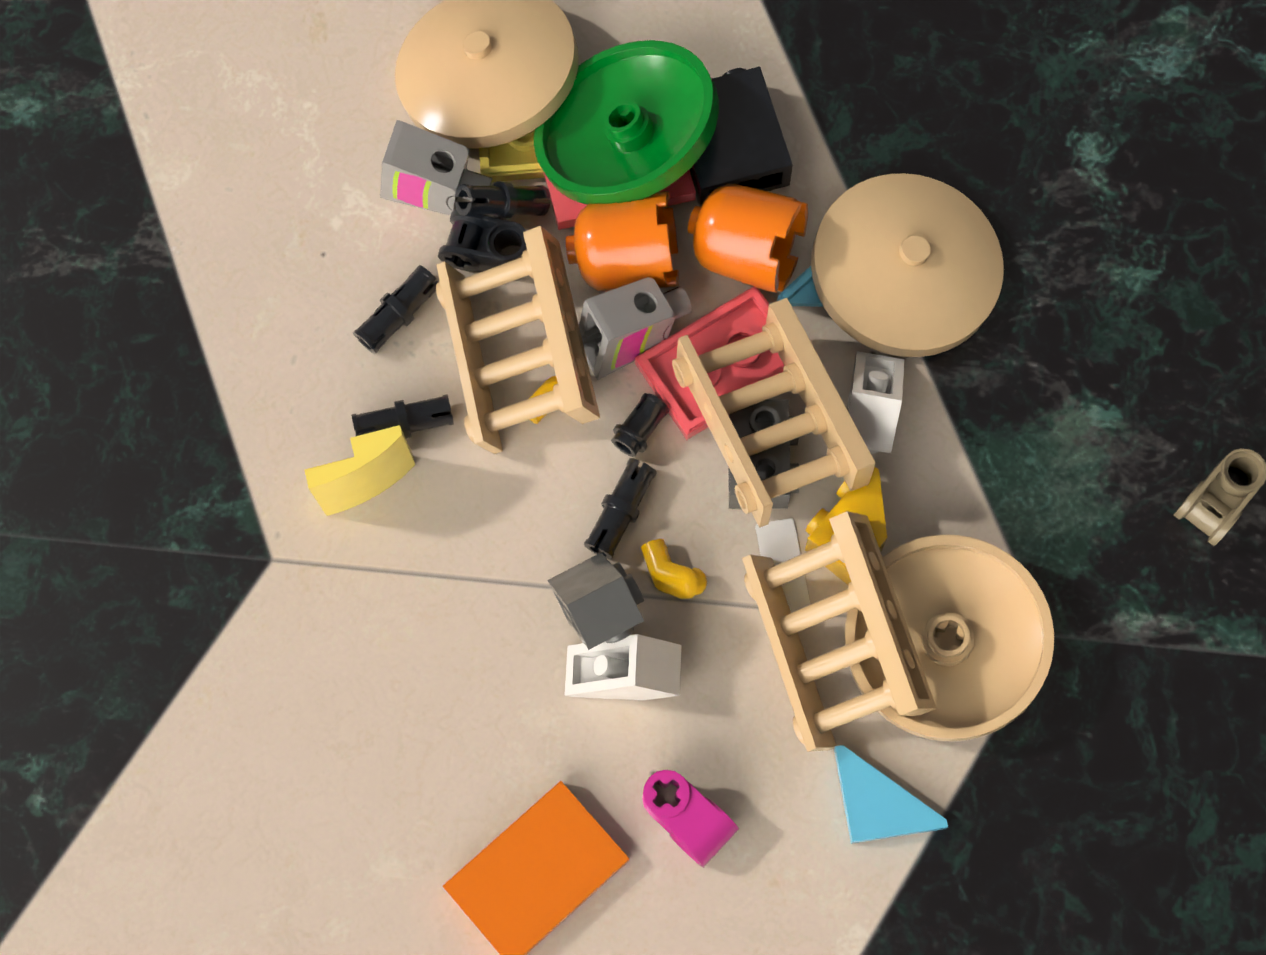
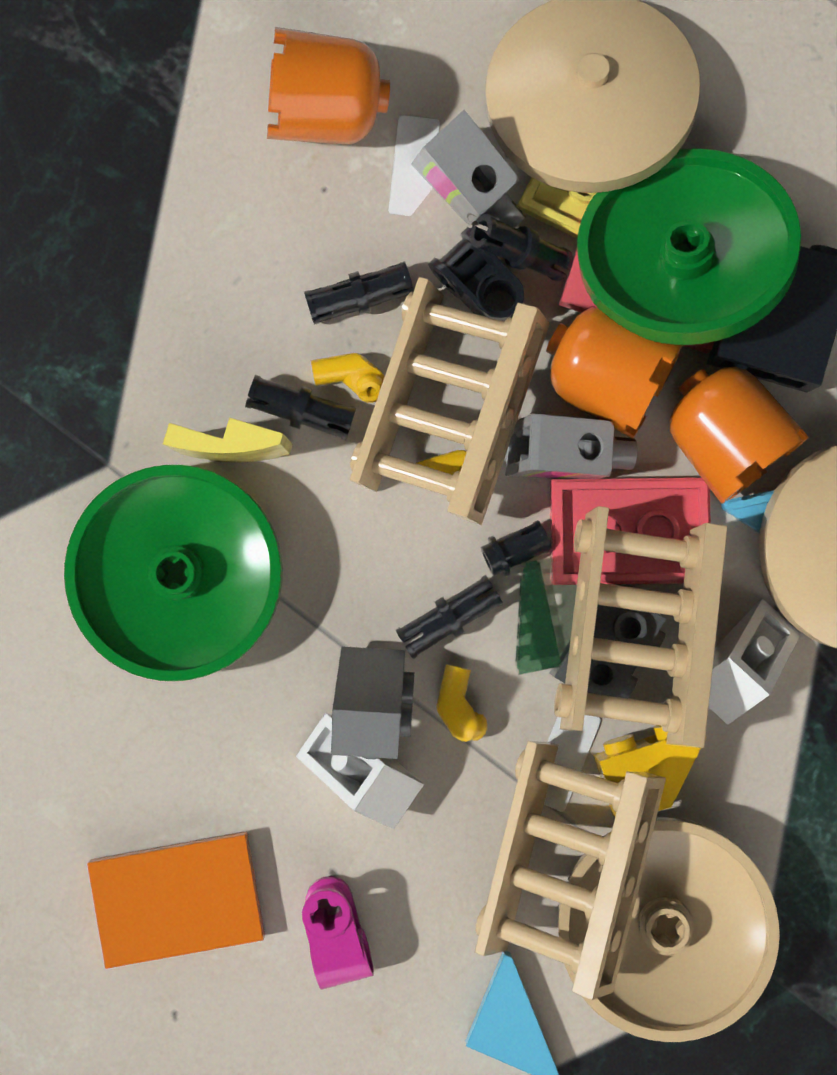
camera: 25 degrees right, 15 degrees up
(279, 175) = (324, 88): none -> orange cylinder
(375, 600) = (173, 573): none -> green dish
(386, 214) = (407, 185): none -> white sticker
(428, 370) = (353, 371): none -> yellow arm
(696, 476) = (535, 631): none -> clear green slope

